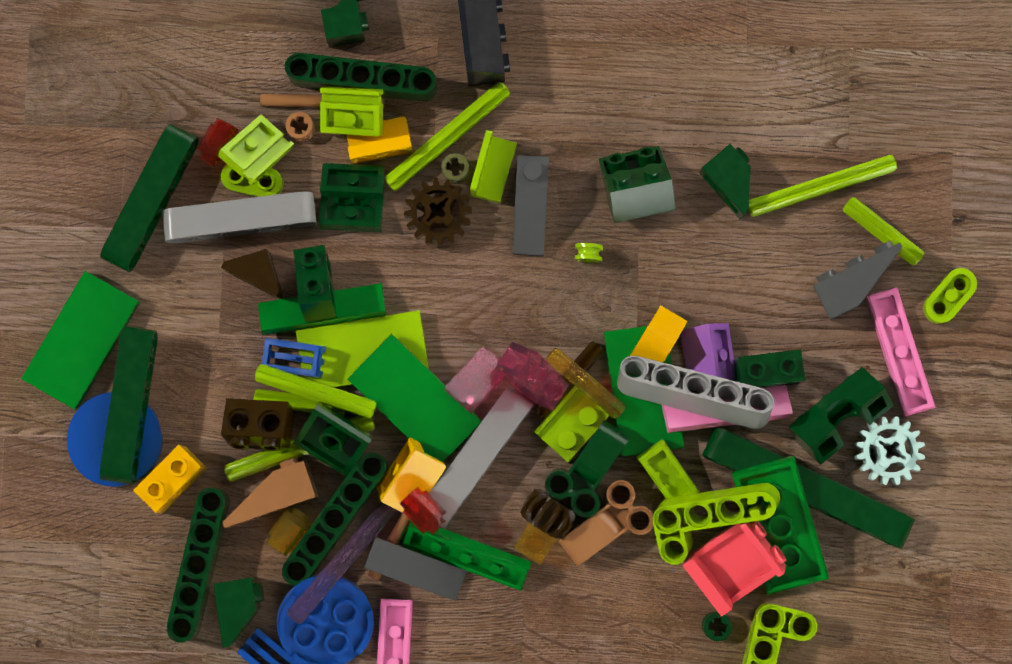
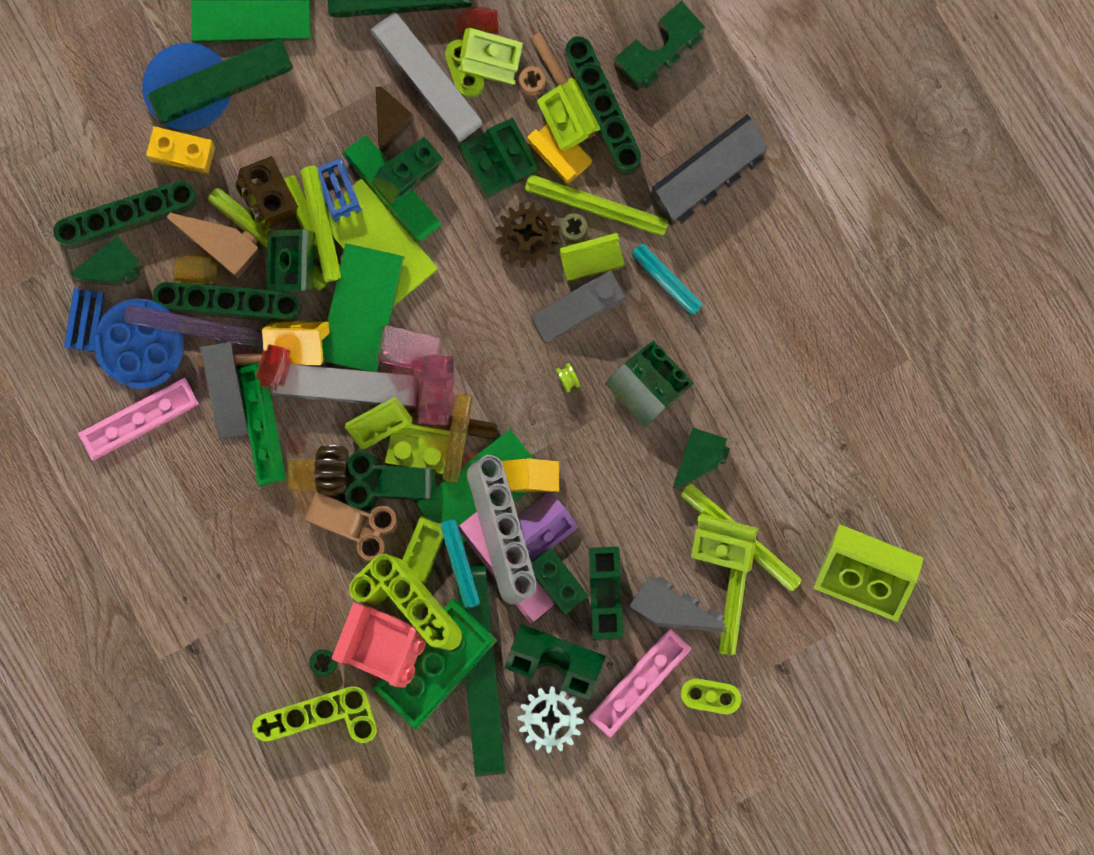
camera: 50 degrees right, 0 degrees up
(529, 446) = (378, 423): none -> lime plate
(551, 114) = (667, 279): none -> teal axle
(704, 448) = (460, 563): none -> teal axle
(797, 331) = (605, 593): none -> dark green arch
(821, 201) = (724, 543): none -> lime plate
(920, 92) = (868, 573): none -> lime slope

